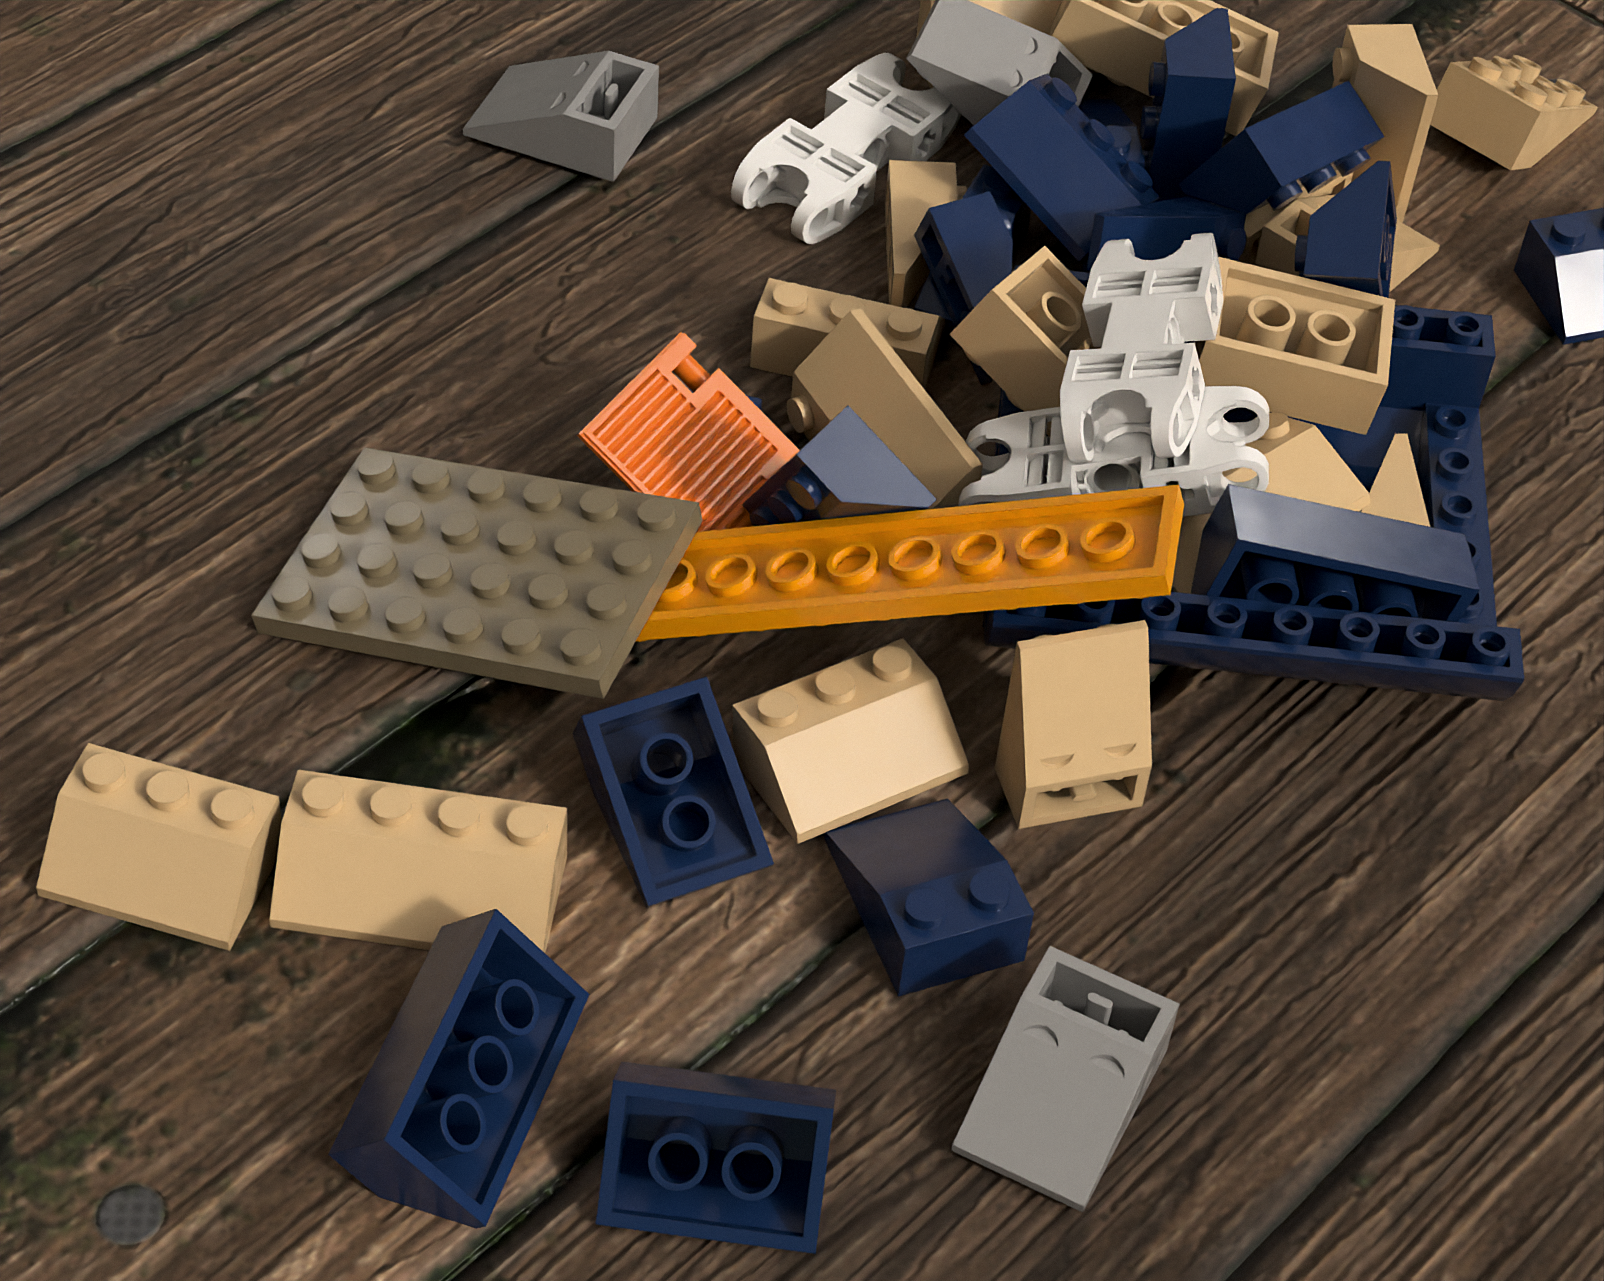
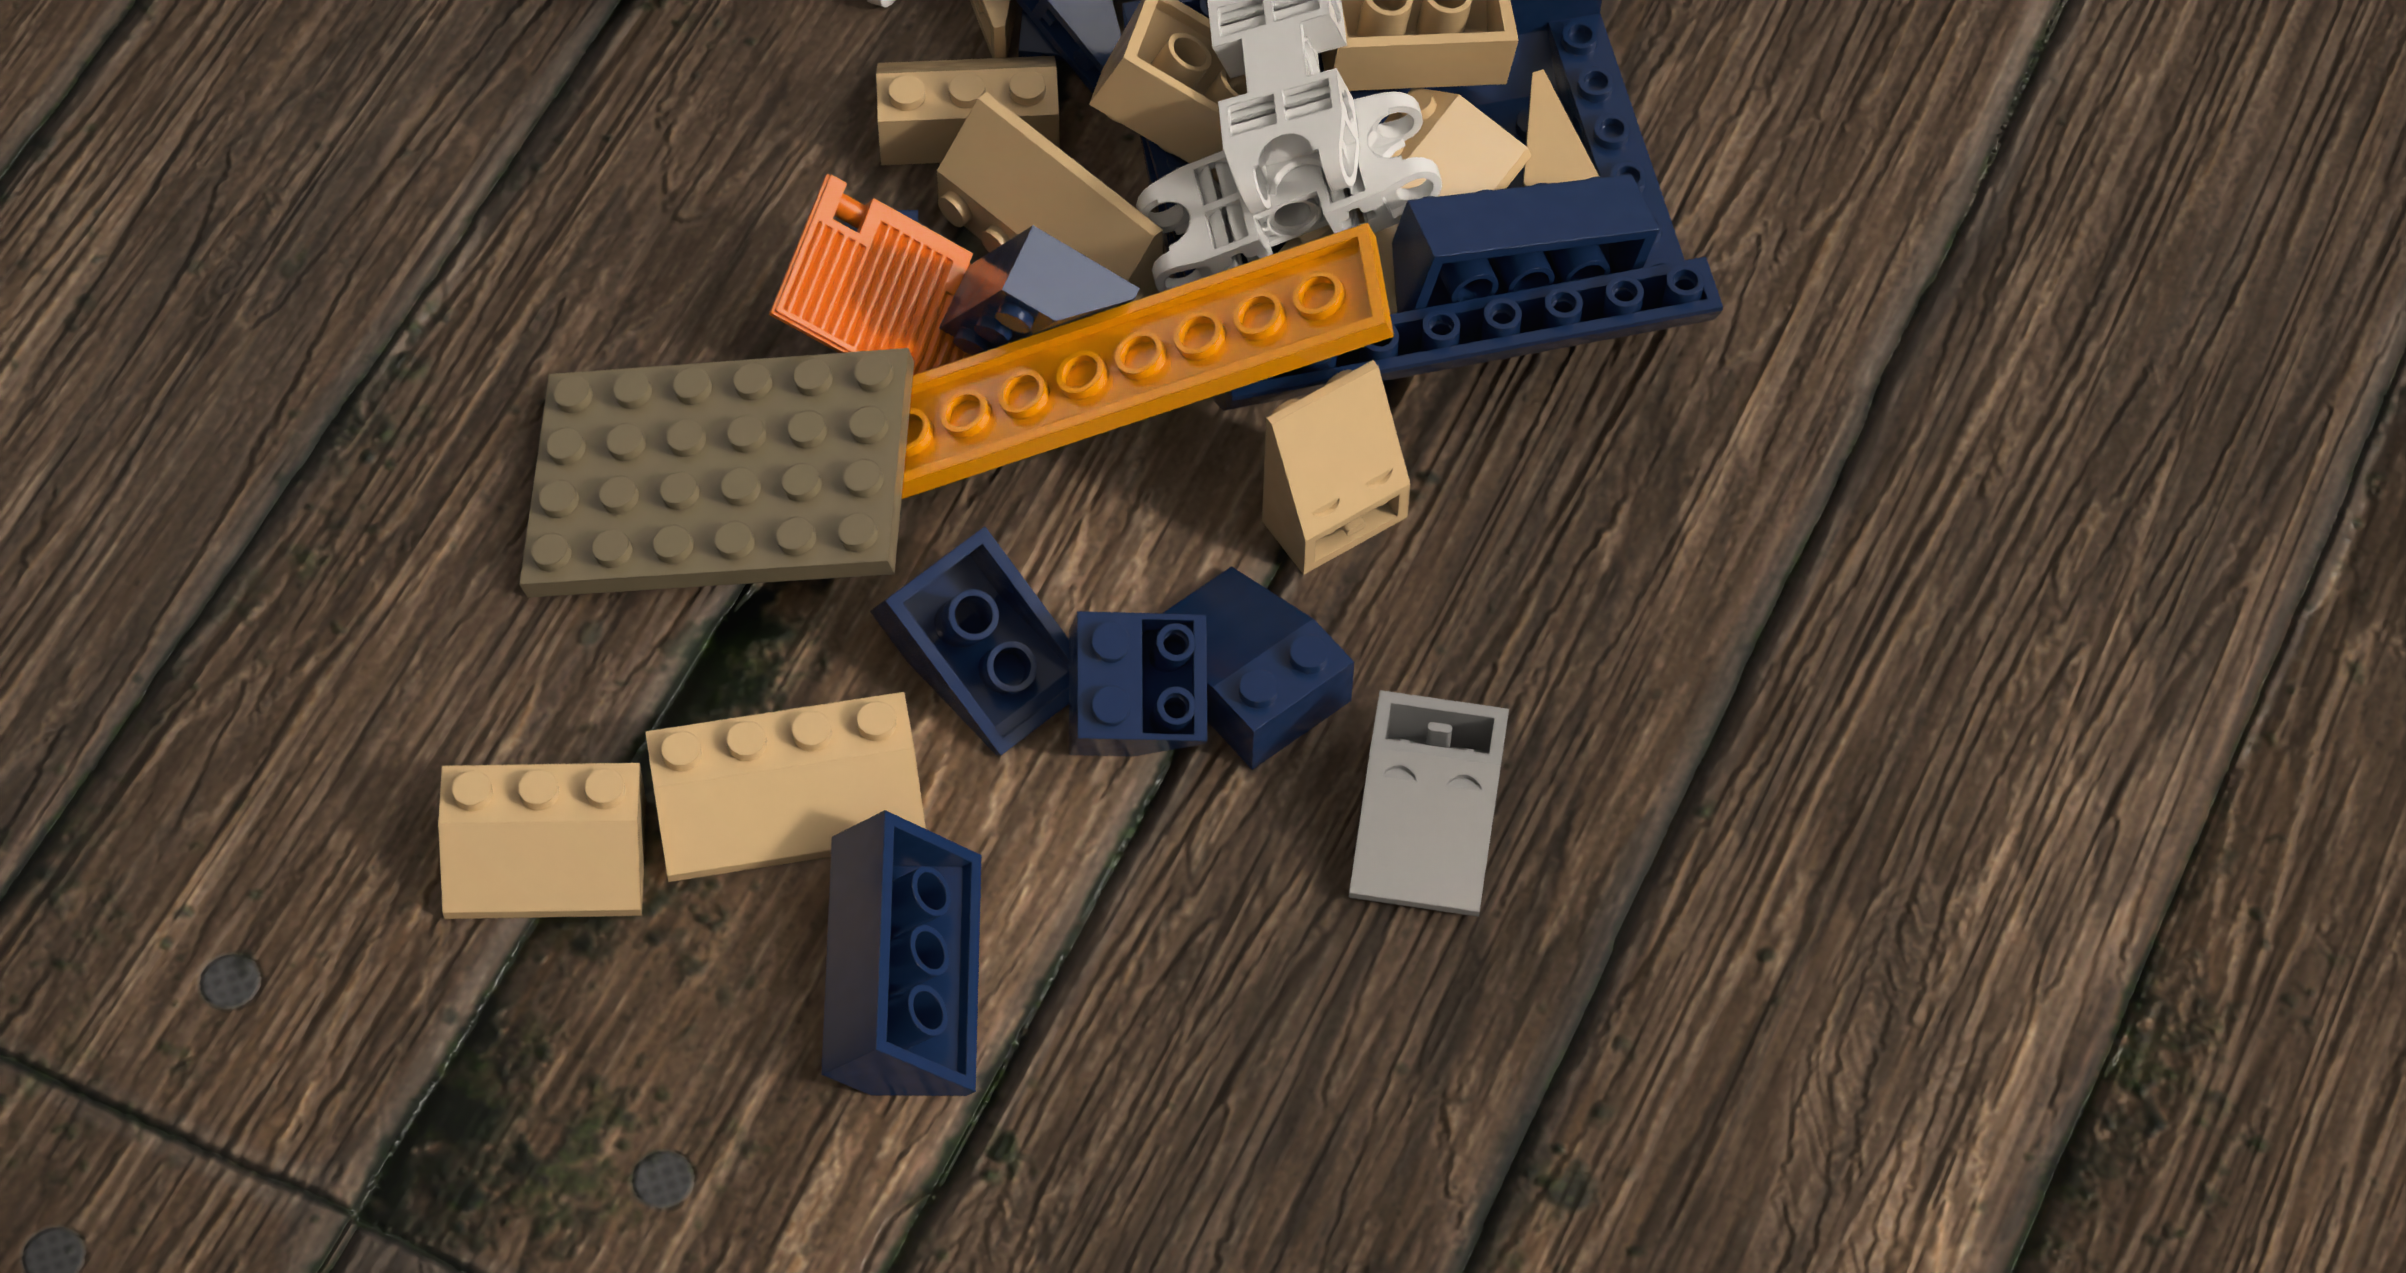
camera: 15 degrees left, 10 degrees up
(715, 1157) = (1153, 967): dark blue slope -> none
(805, 870) = (1136, 683): none -> dark blue slope
(848, 740) = (1127, 534): tan slope -> none

